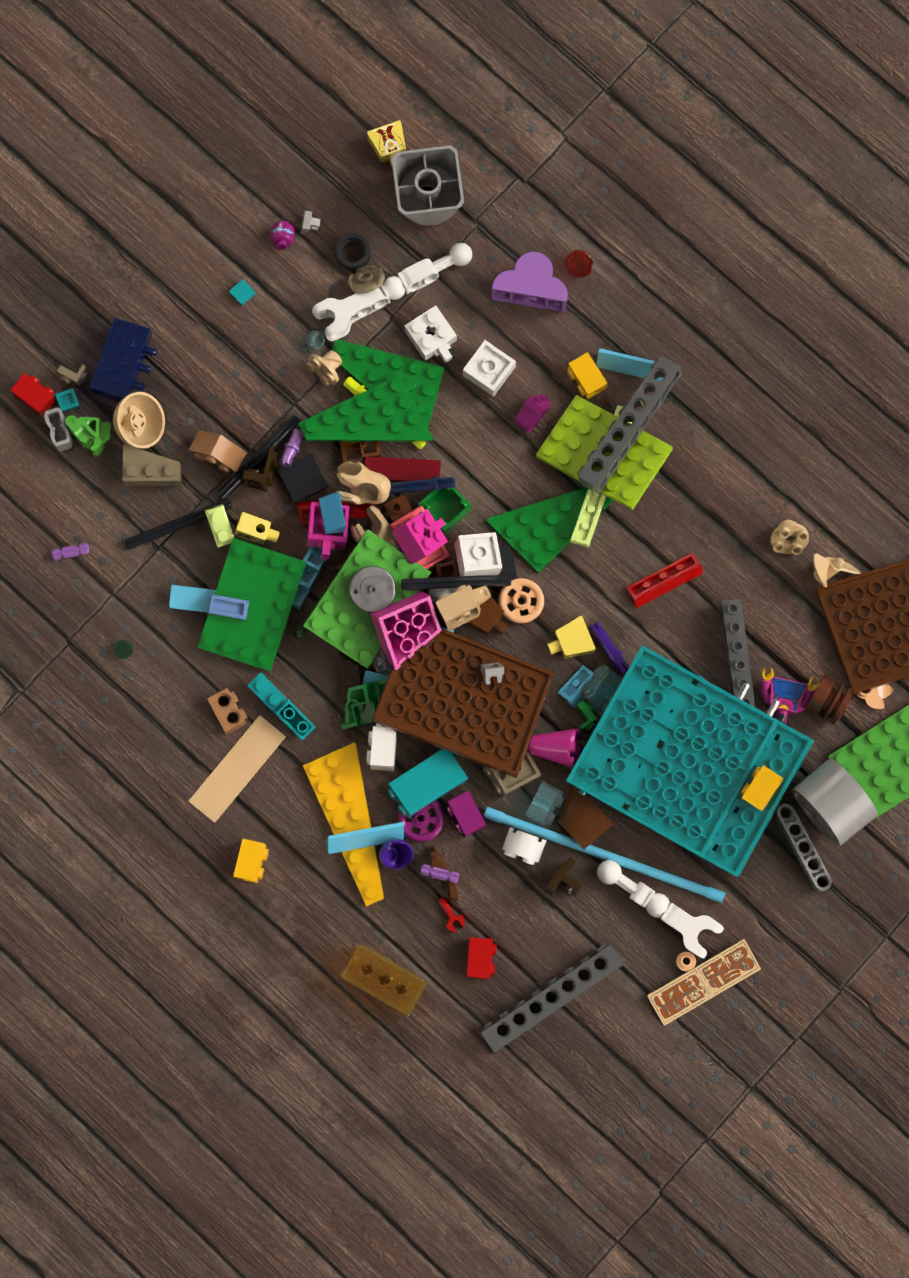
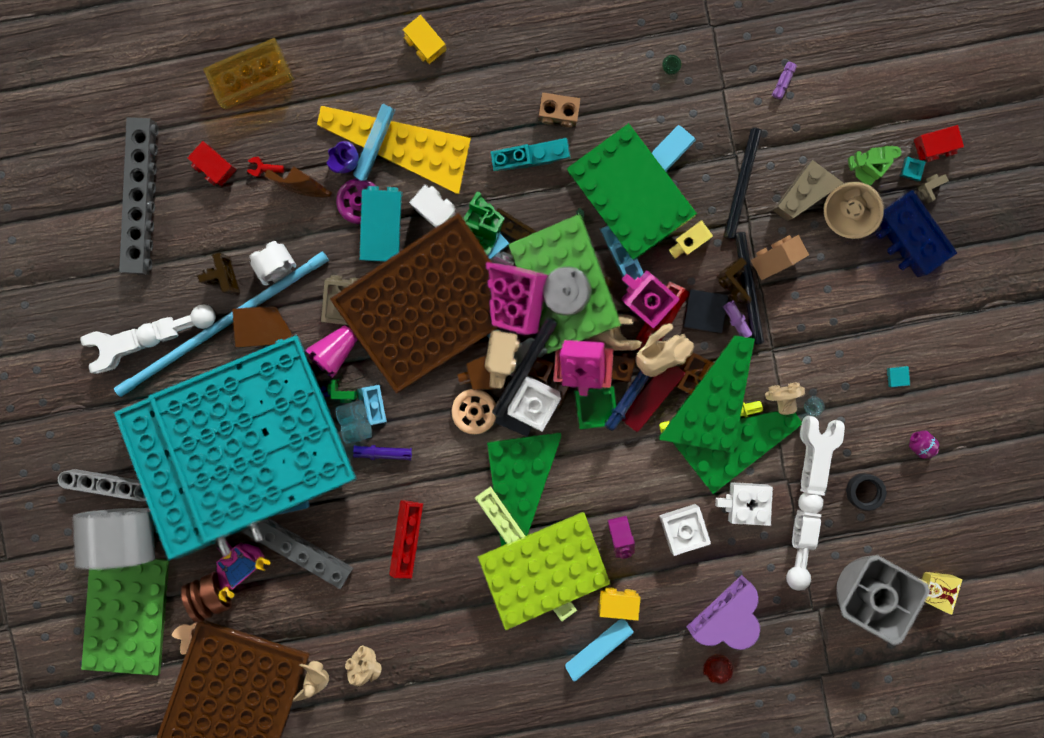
camera: 125 degrees right, 10 degrees up
(58, 429) = (892, 136): light grey brick -> none
(220, 525) = (716, 213): yellowish green brick -> none
(228, 606) = (642, 169): medium blue tile -> none
(237, 768) = (507, 86): tan sticker -> none
(309, 223) = (917, 474): light grey tile -> none
(332, 513) = (656, 308): dark azure slope -> none
(366, 279) = (834, 485): dark tan tile -> none
(439, 873) = (292, 173): medium lavender axle -> none
(466, 814) = (334, 238): magenta brick -> none
(492, 669) = (430, 342): light grey tile -> none
(544, 804) = (295, 306): clear light blue brick -> none
(572, 640) = (410, 428): light yellow torso -> none
(597, 480) = (577, 672): dark grey brick -> none
(679, 961) = (95, 324): light nougat plate -> none
(704, 982) = (64, 326): sticker -> none
(762, 787) = (161, 486): yellow brick -> none

